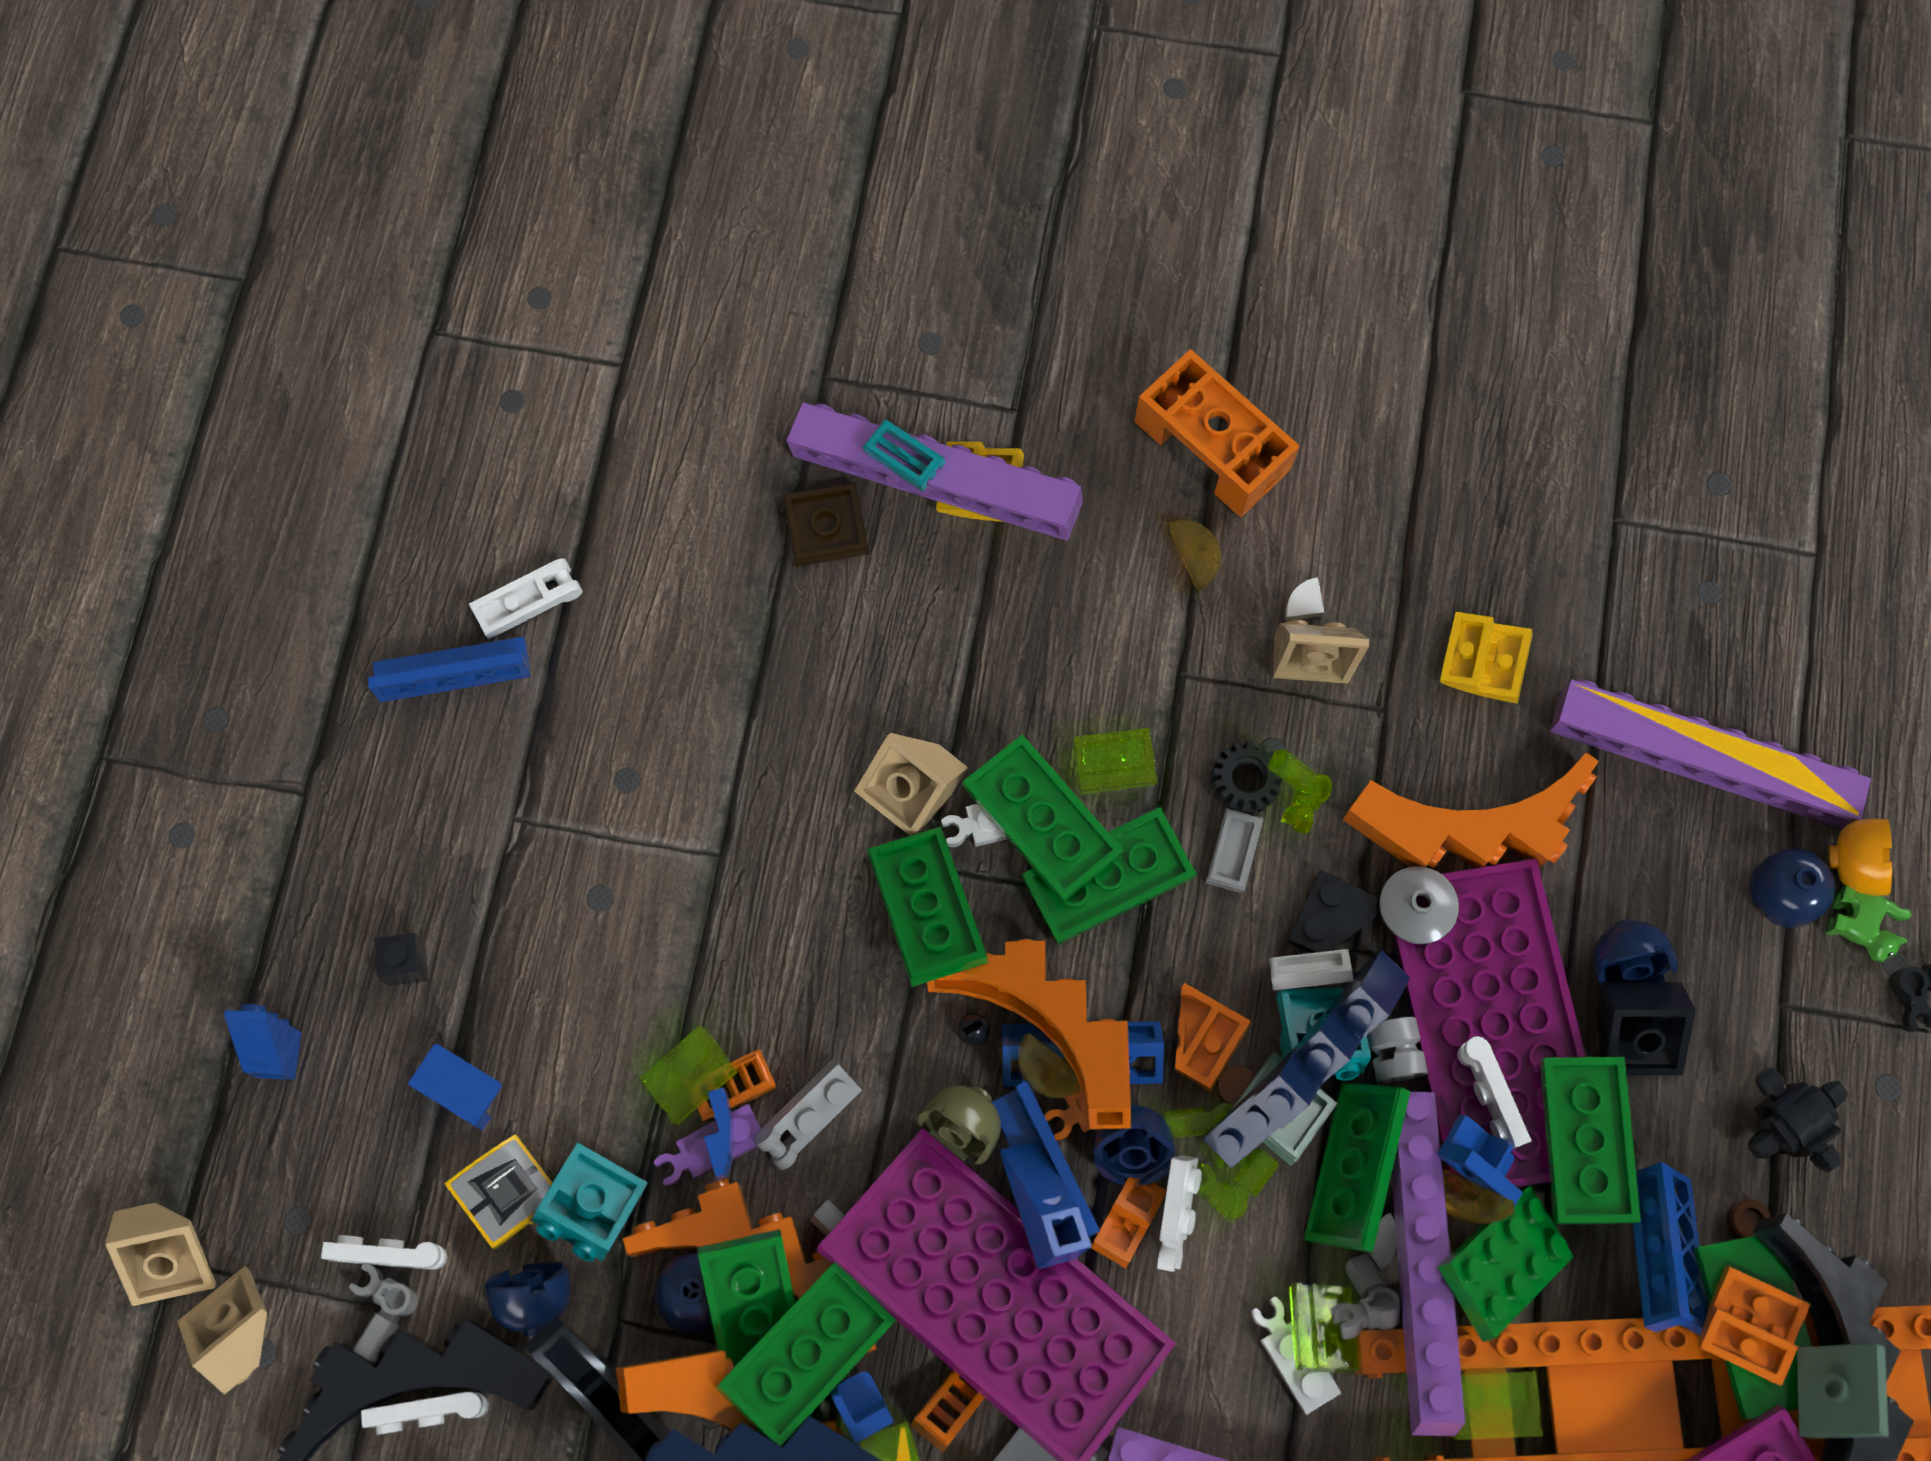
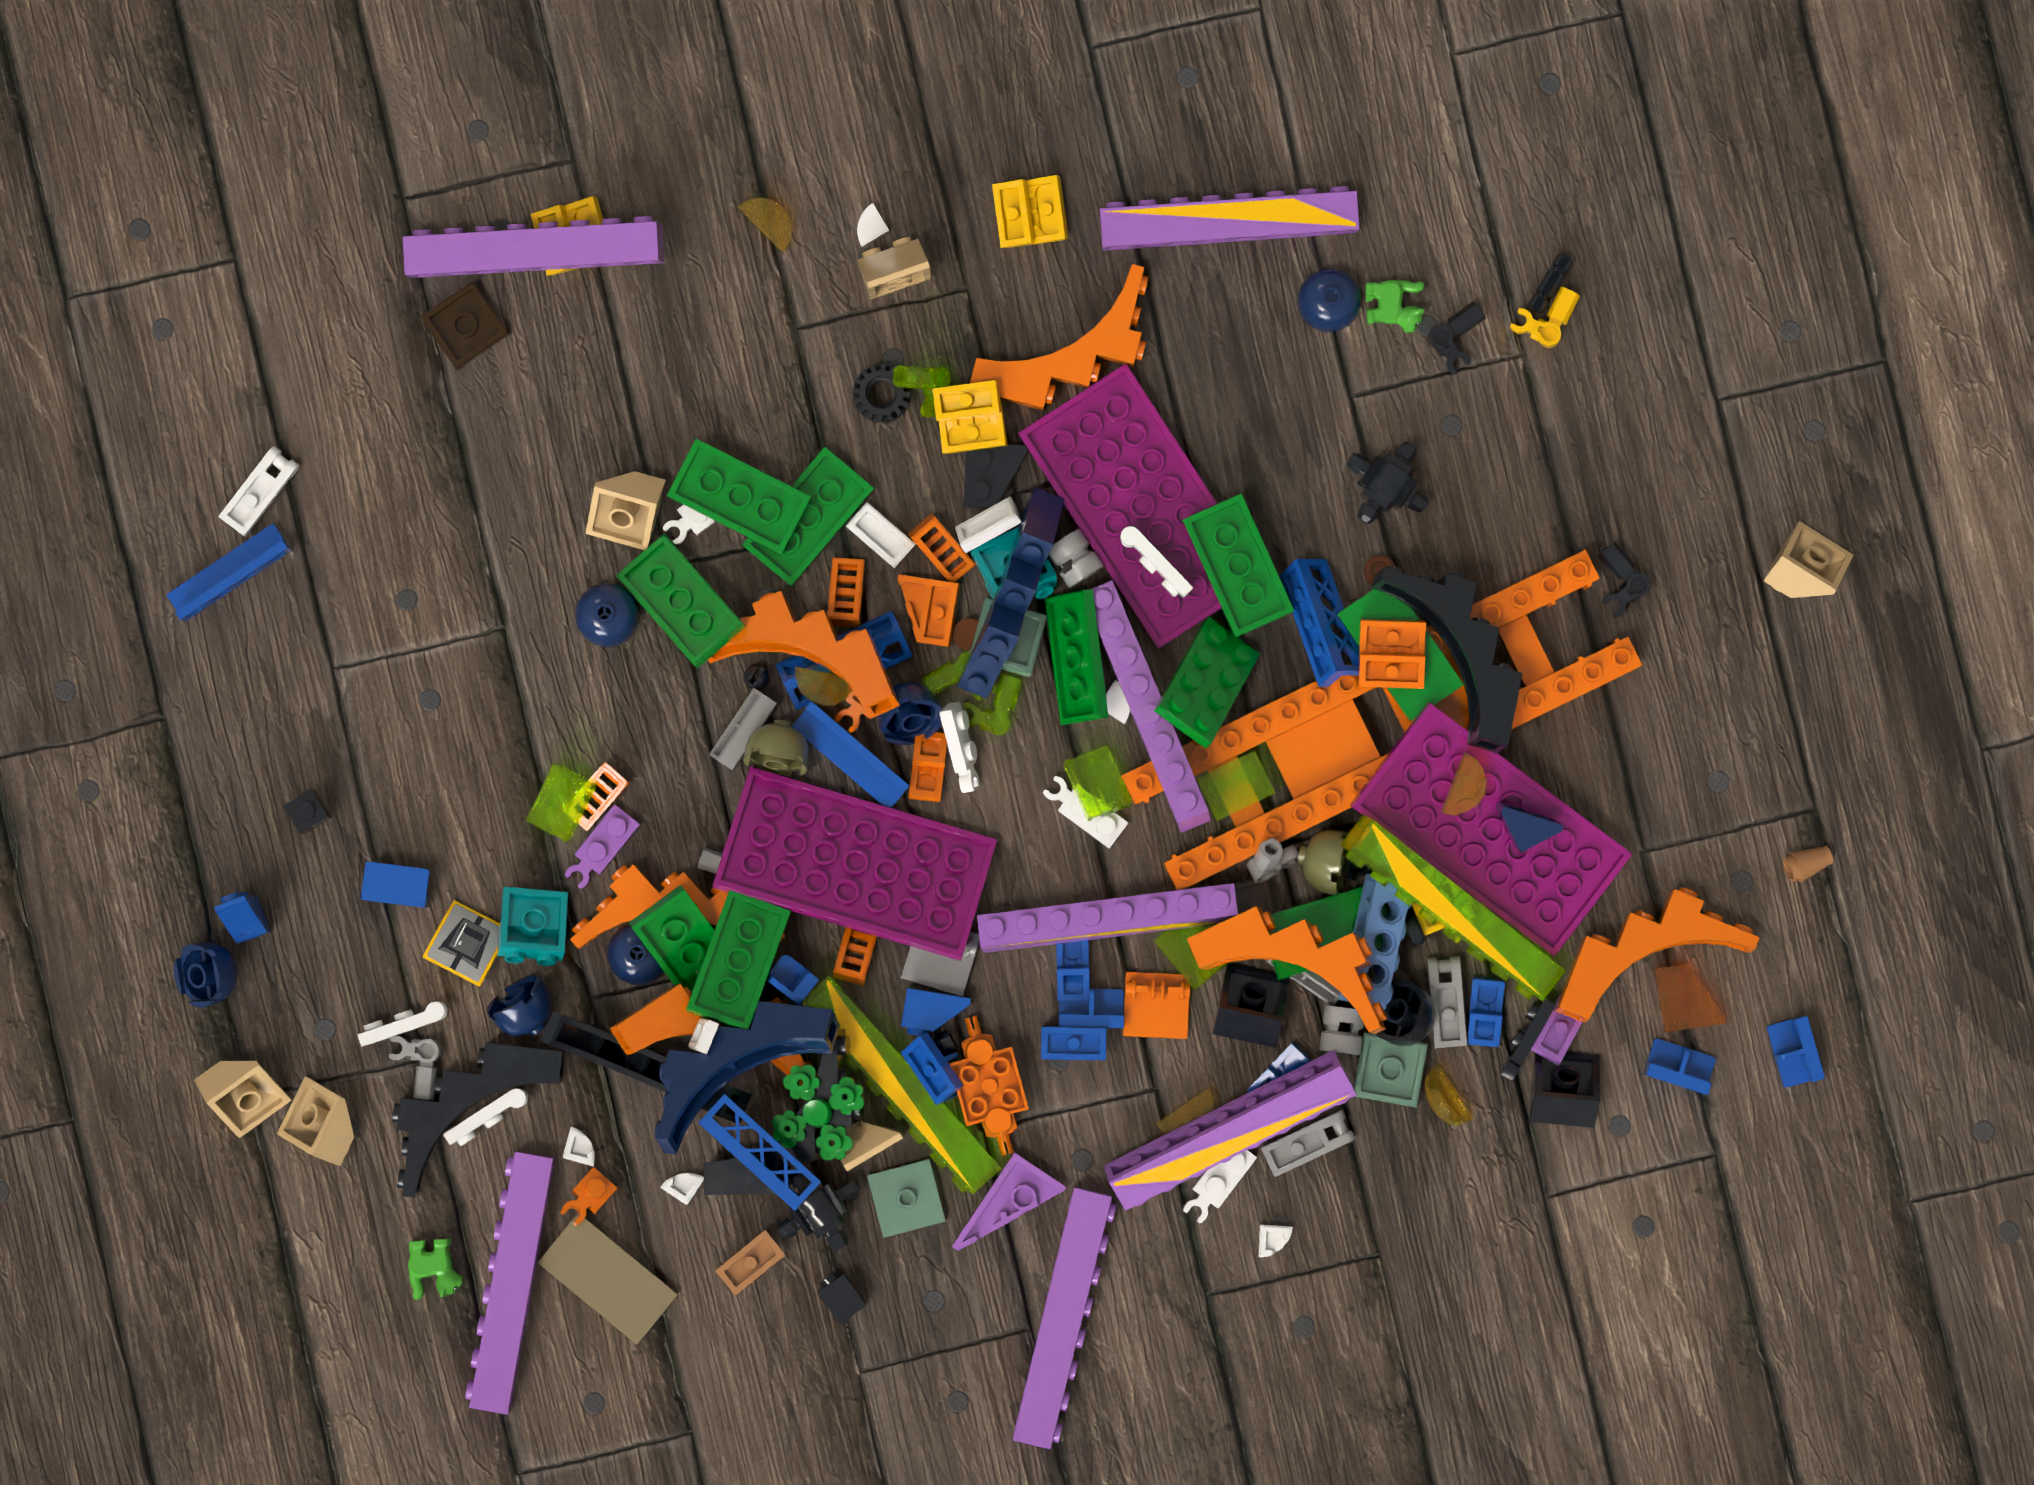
camera: 25 degrees left, 15 degrees up
(192, 1092) = (205, 973): none -> dark blue cylinder
(721, 1143) = (609, 843): blue slope -> none
(722, 1429) = (703, 1035): none -> white tile
(807, 1114) = (661, 793): light grey plate -> none
(841, 903) = (621, 621): none -> dark blue cylinder
(927, 472) = (532, 258): teal tile -> none
(950, 1069) = (749, 717): none -> light grey piece
(1045, 1206) = (861, 784): blue slope -> none
(1105, 1001) = (846, 619): none -> orange slope
(1115, 760) = (775, 423): clear neon green plate -> none
(1181, 932) = (880, 535): none -> white tile
(1226, 966) = (921, 529): none -> orange slope
(1234, 850) = (895, 454): light grey tile -> none
(1246, 456) = (773, 134): orange plate -> none
(1338, 841) = (970, 417): none -> yellow slope
(1378, 1303) = (1128, 752): light grey bar -> none
(1406, 918) = (1050, 456): light grey dish -> none
(1473, 1202) = (1166, 649): clear yellow plate -> none
(1480, 1157) = (1162, 615): blue panel -> none
(1633, 953) = (1224, 409): dark blue cylinder -> none
(1646, 1025) = (1252, 460): black slope -> none
(1842, 1391) = (1461, 676): sand green plate -> none
(1864, 856) = (1371, 256): light orange cylinder -> none

